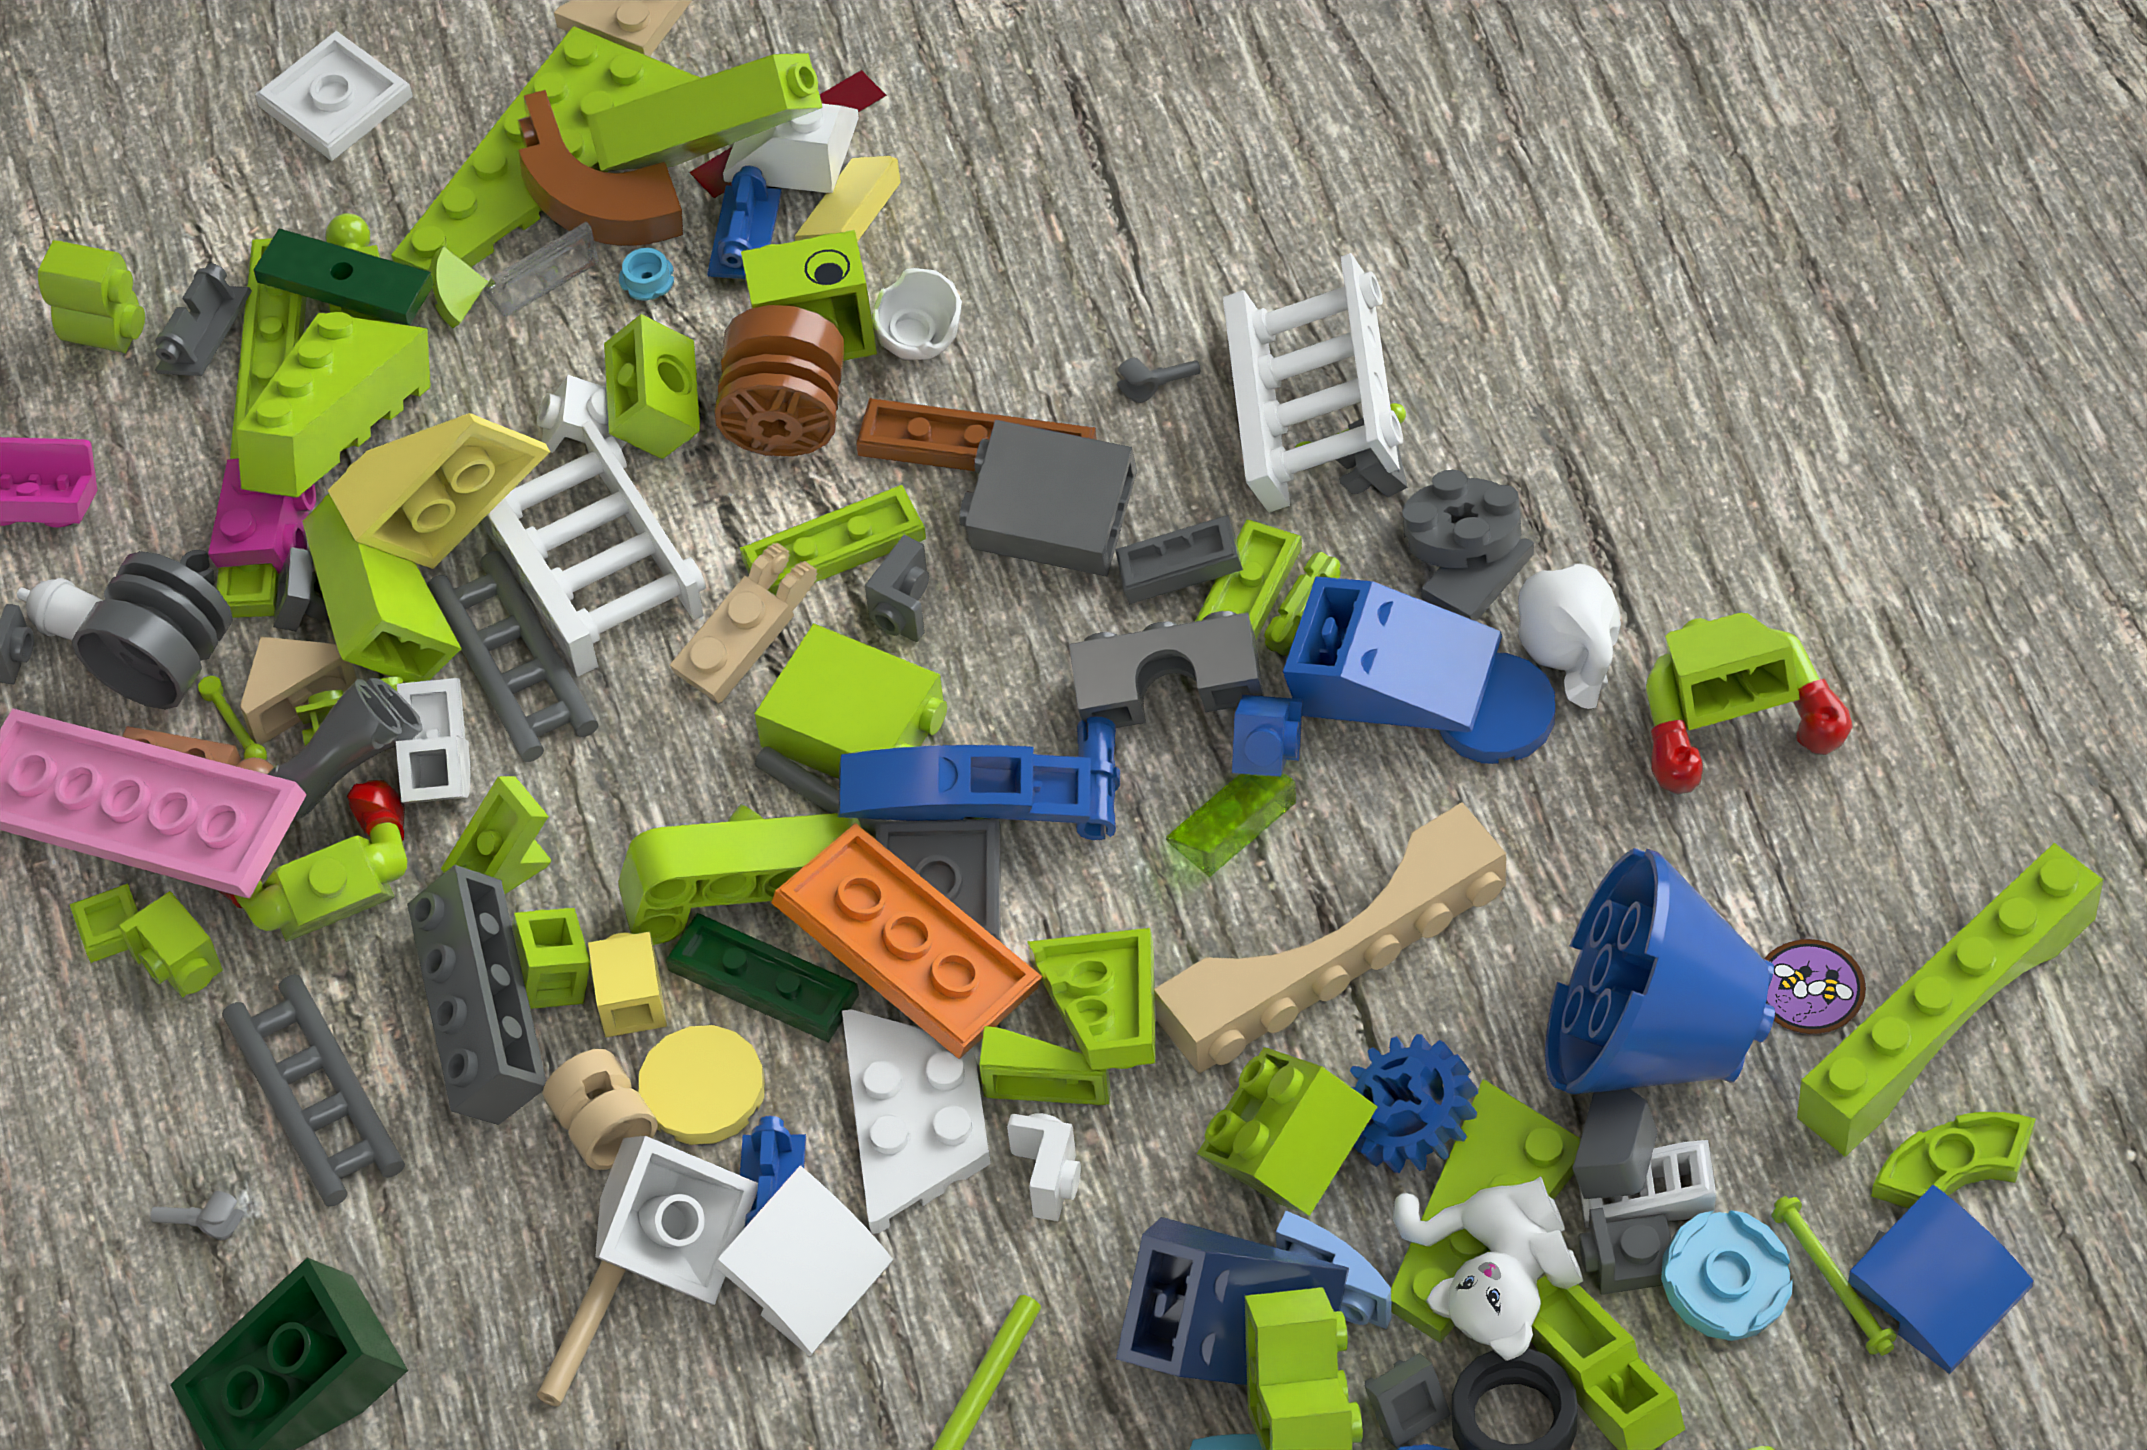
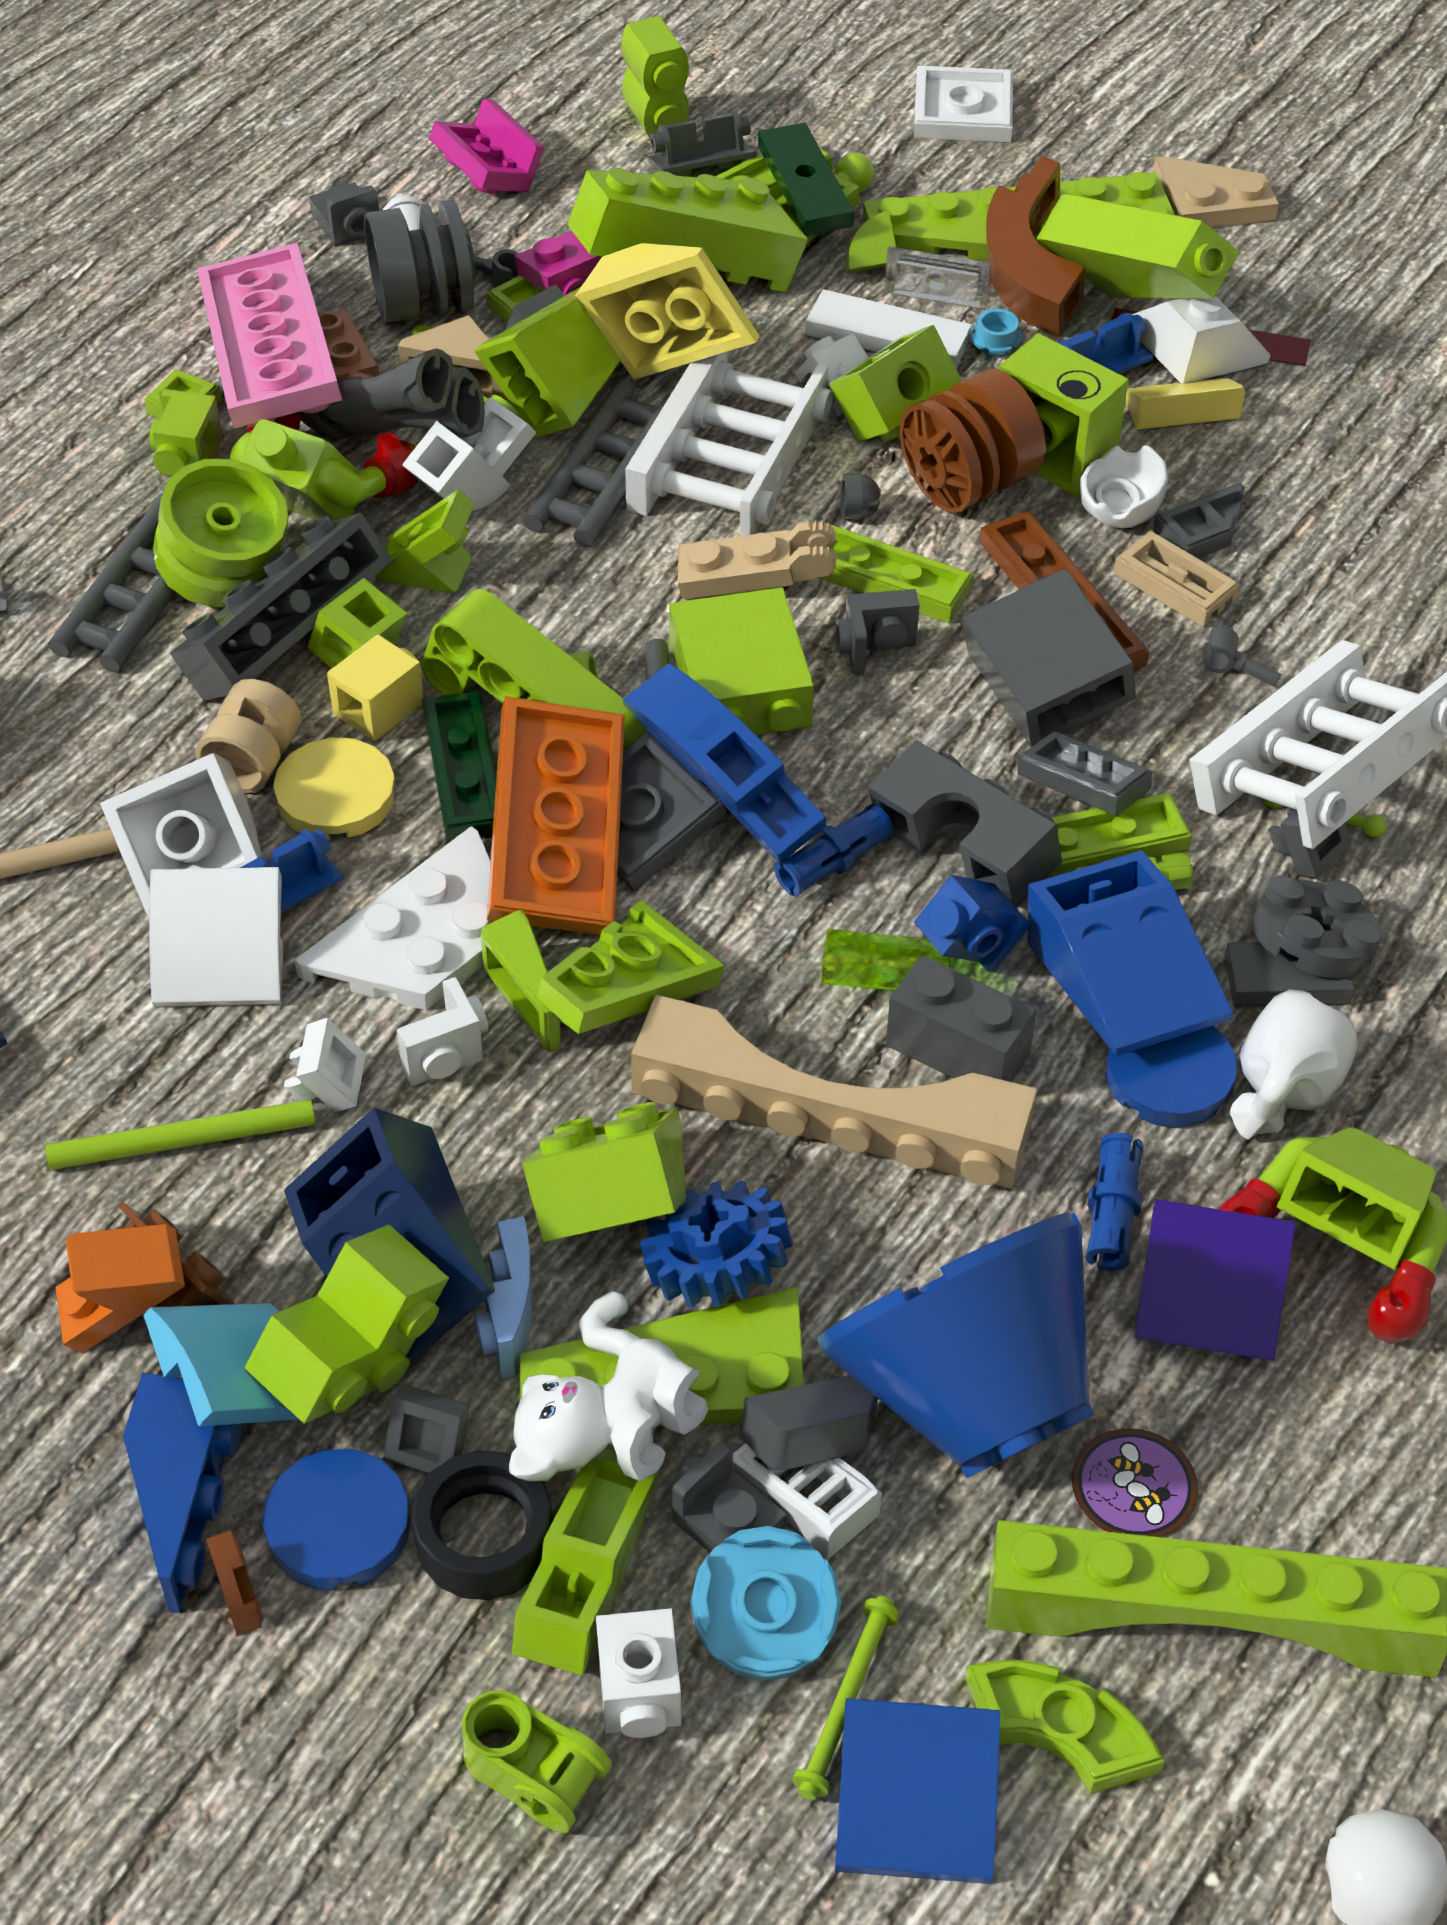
camera: 45 degrees right, 5 degrees down
(350, 987) = (217, 528): none -> lime wheel
(553, 348) = (880, 323): none -> white tile
(738, 504) = (858, 496): none -> dark grey hinge
(993, 294) = (1204, 523): none -> dark grey tile
(1006, 1261) = (327, 1067): none -> white tile
(1034, 361) = (1171, 582): none -> tan tile
(1350, 812) = (958, 1023): none -> dark grey brick
(1580, 824) = (1114, 1202): none -> blue pin
(1709, 812) = (1214, 1279): none -> dark purple tile
(1721, 1388) = (639, 1672): none -> white brick

